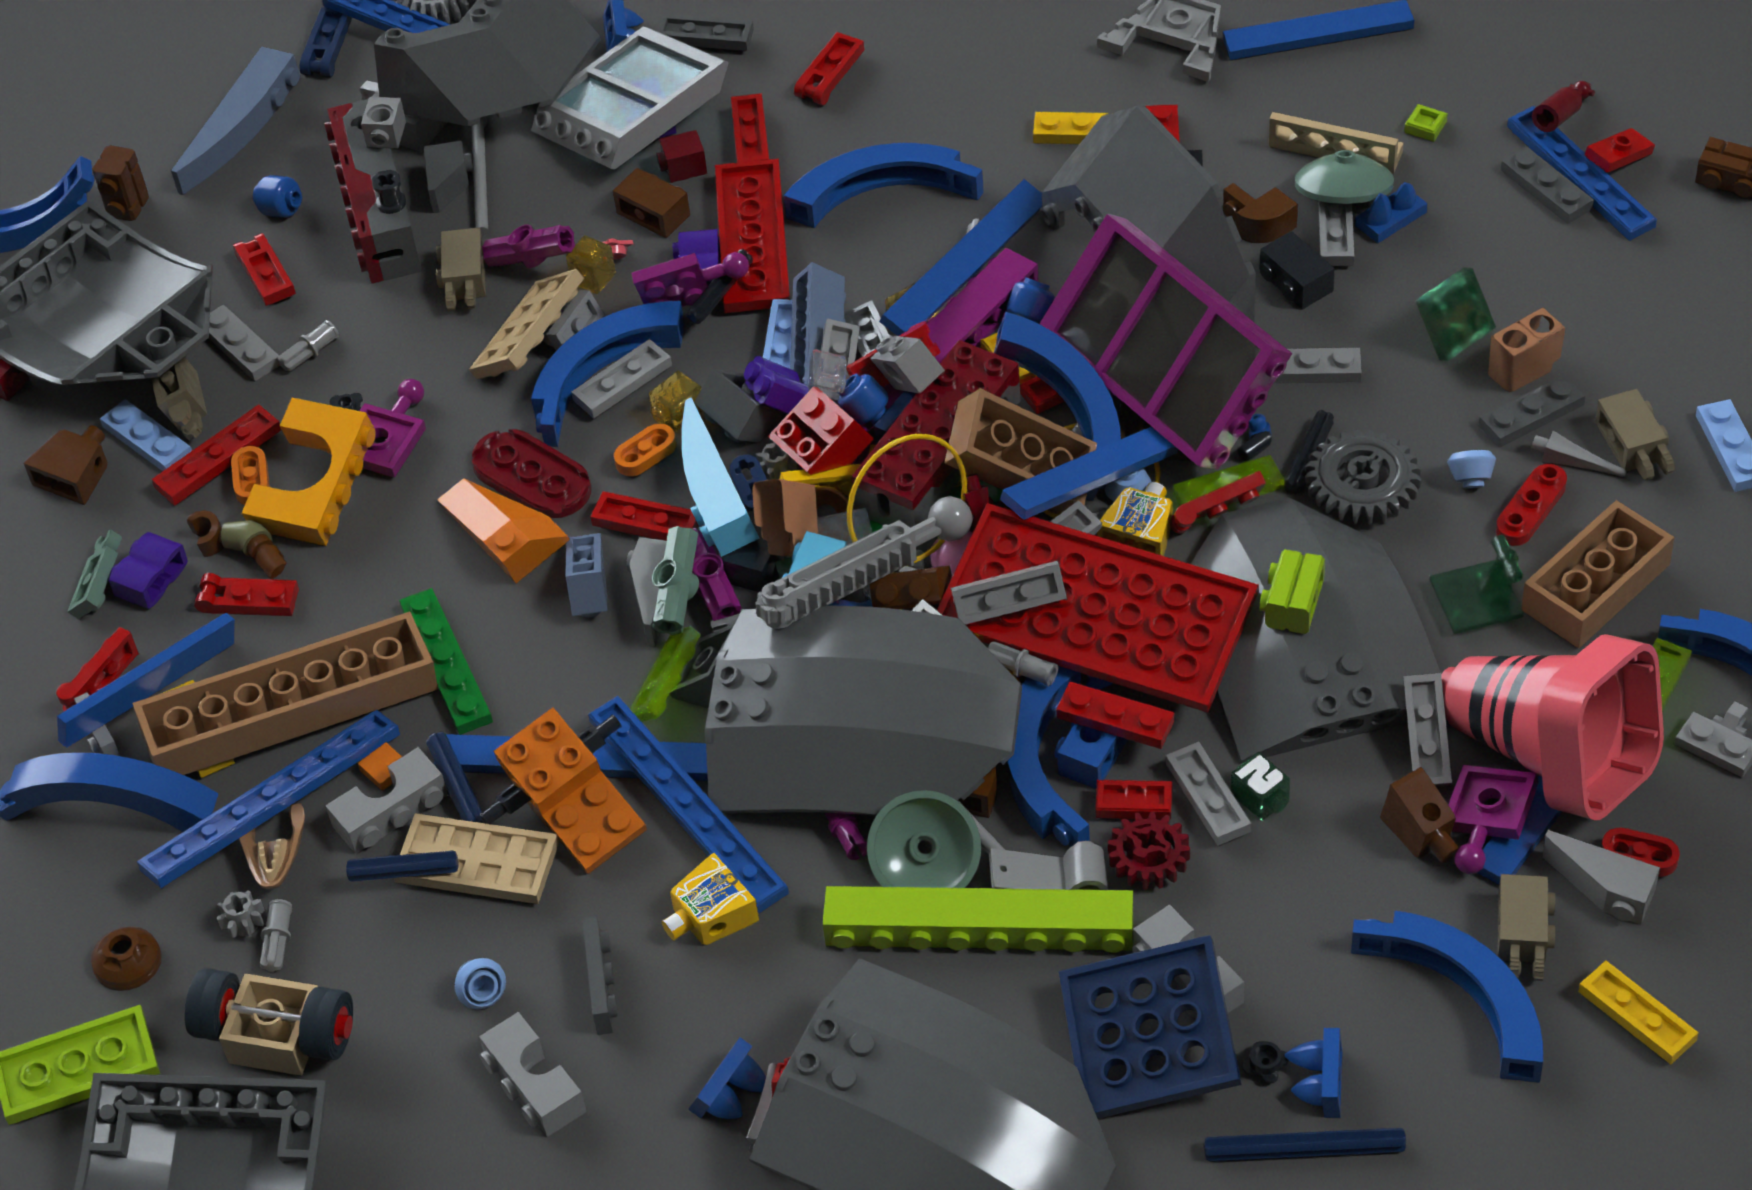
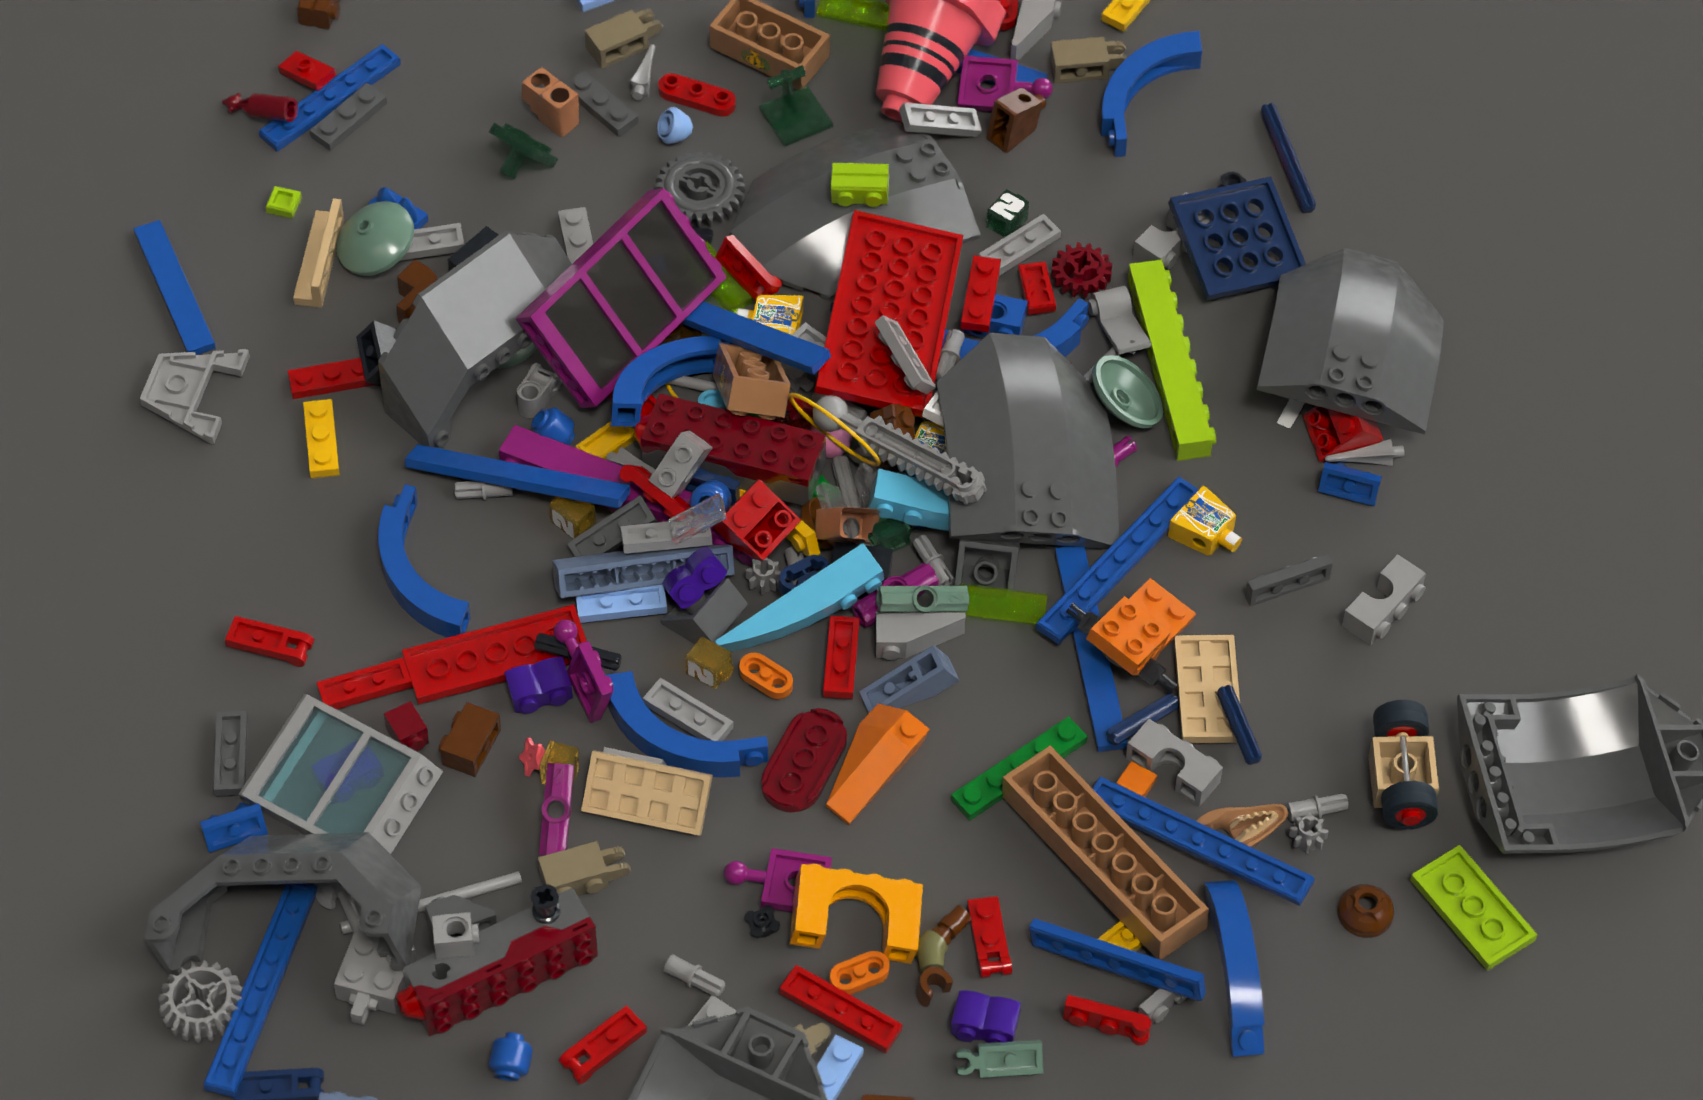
camera: 110 degrees left, 5 degrees up
(480, 983) = (1319, 653): light blue cone -> none
(1320, 1056) = (1225, 147): blue tile -> none

